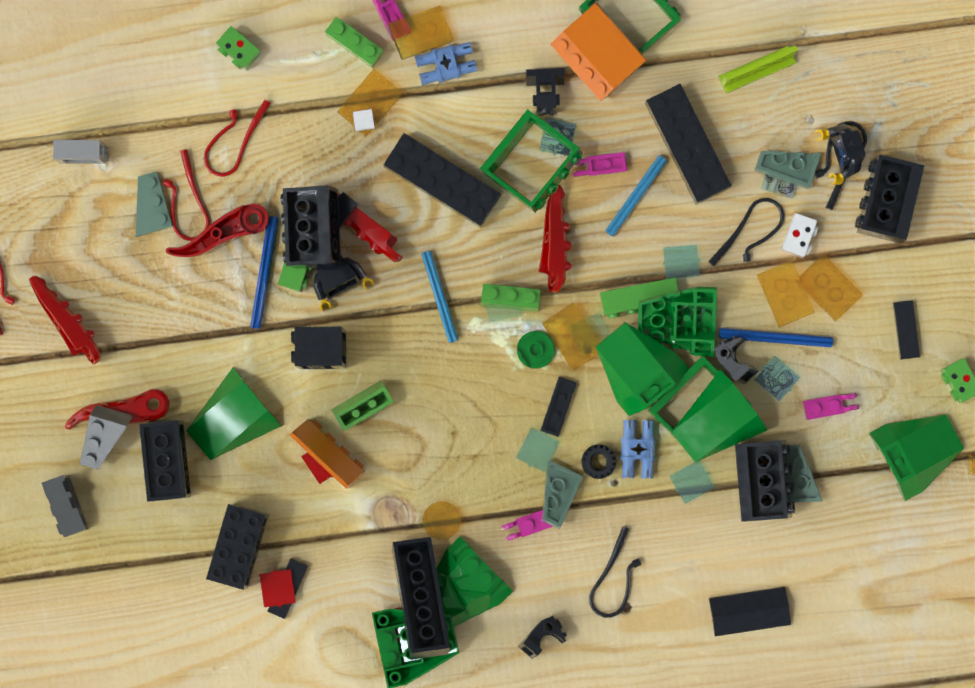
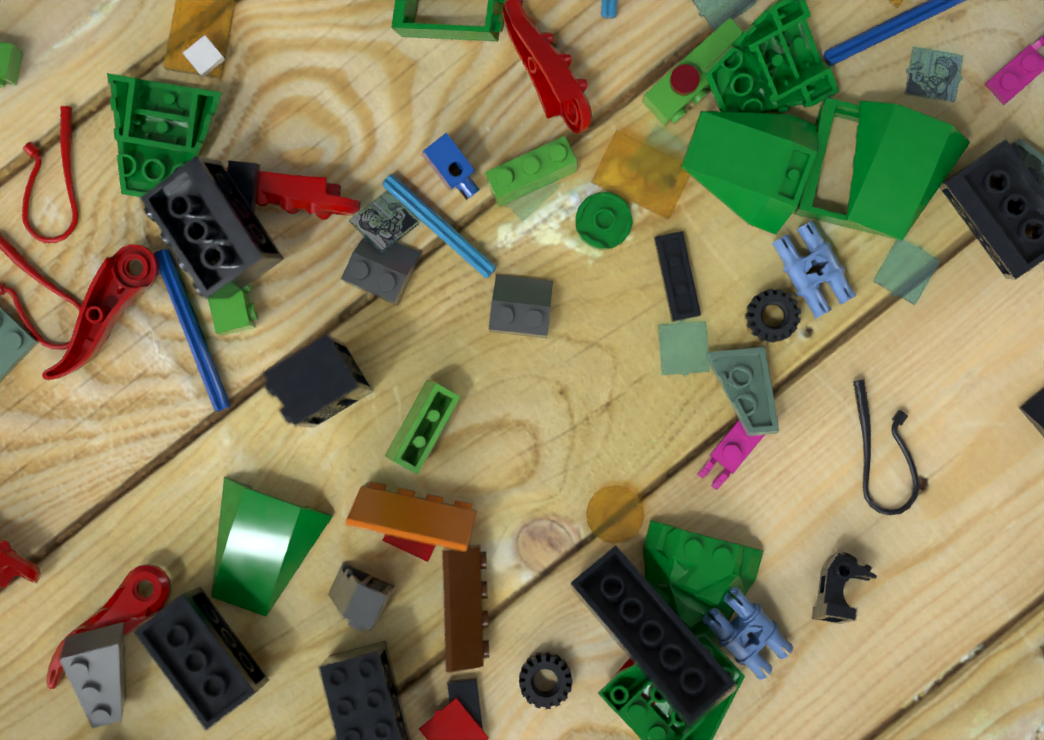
camera: 30 degrees left, 0 degrees up
(271, 479) = (360, 597): none -> dark grey wedge
(312, 149) = (157, 128): none -> green wedge
(325, 520) = (464, 608): none -> reddish brown slope
(338, 279) = (291, 281): black torso -> none
(343, 601) = (545, 698): none -> black tyre
(393, 301) = (381, 274): none -> dark grey slope
(409, 276) = (384, 222): none -> piece
(442, 180) = (351, 73): black brick -> none
(459, 370) = (520, 306): none -> dark grey slope
(466, 259) = (444, 154): none -> blue torso
(468, 637) = (751, 620): none -> medium blue pin
(627, 298) = (684, 80): none -> dark red tile
(739, 372) = (886, 89): black tile -> none

